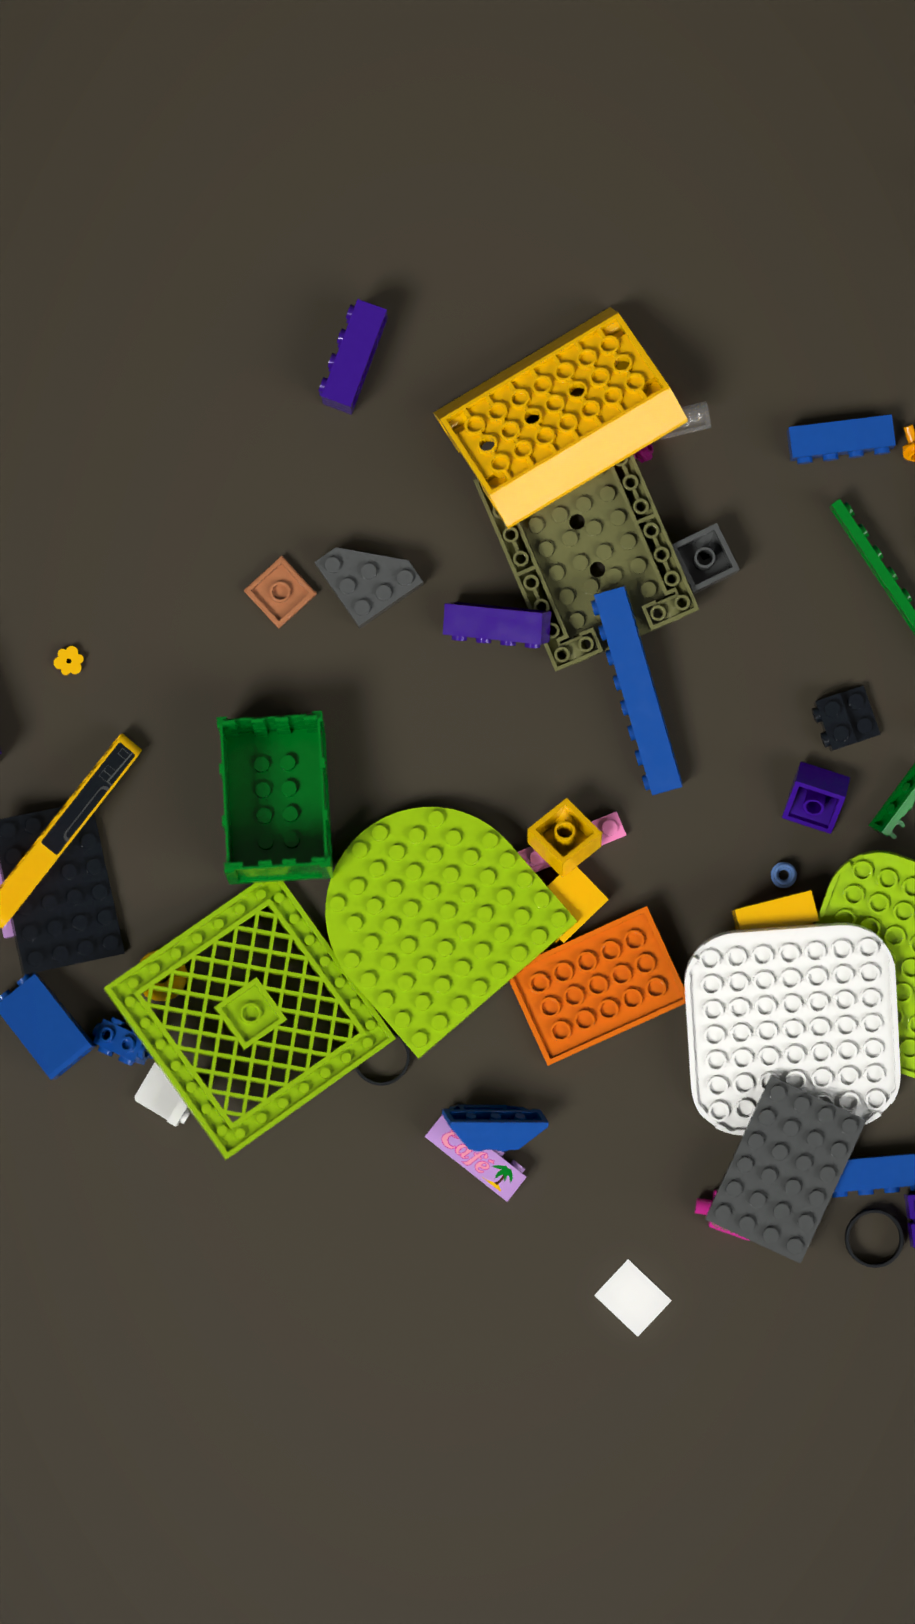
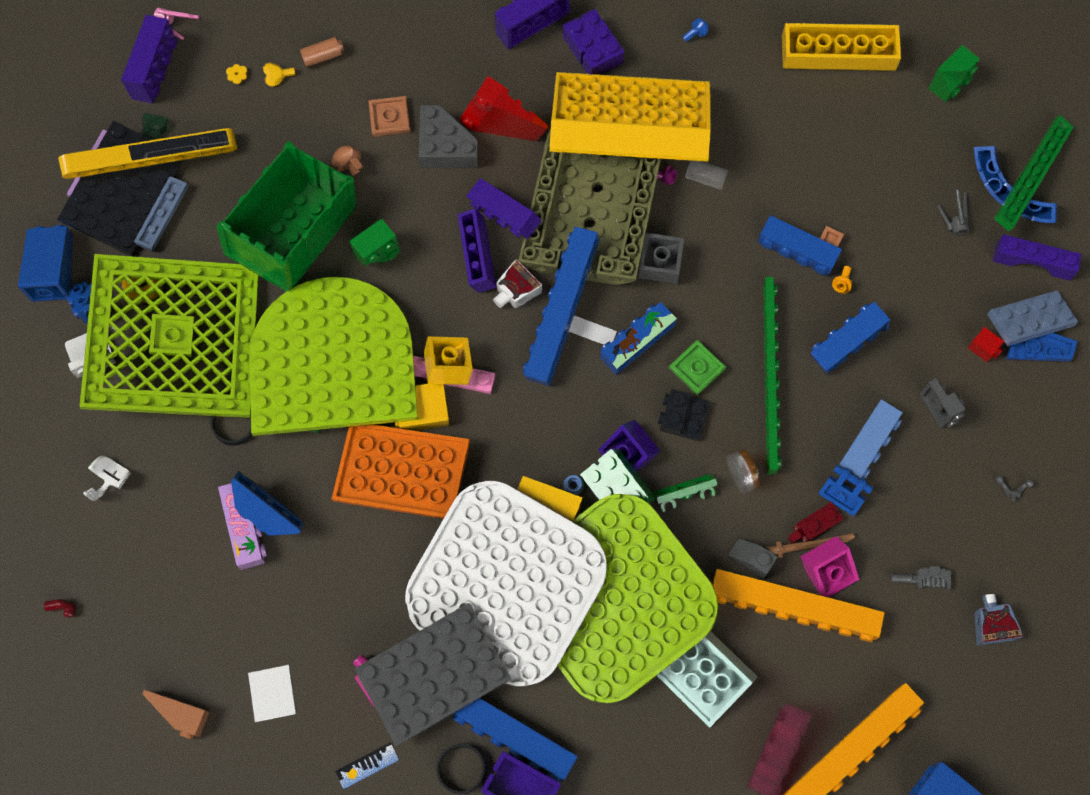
camera: 35 degrees right, 15 degrees down
(26, 785) = (153, 124): none -> clear green piece
(114, 630) = (276, 74): none -> yellow rock
(120, 884) = (161, 214): none -> sand blue plate
(146, 568) = (321, 51): none -> nougat brick
(276, 678) = (347, 158): none -> nougat piece
(289, 1191) = (97, 467): none -> white helmet
(353, 1364) = (60, 604): none -> dark red arm
(388, 761) = (375, 244): none -> green slope
(407, 514) = (499, 114): none -> red wedge
(447, 343) = (596, 41): none -> dark purple piece
(499, 688) = (476, 250): none -> dark purple brick
(553, 240) = (700, 28): none -> blue plate
(564, 1382) = (180, 716): none -> nougat slope
(570, 698) = (517, 286): none -> torso
(685, 689) = (592, 330): none -> white sticker
(730, 157) = (841, 46): none -> yellow brick
(740, 666) = (637, 338): none -> brick
(779, 1299) = (366, 765): none -> sticker
(824, 655) = (697, 367): none -> bright green plate
(828, 842) = (615, 476): none -> piece
(869, 404) = (832, 236): none -> nougat plate
(879, 101) = (954, 74): none -> green slope

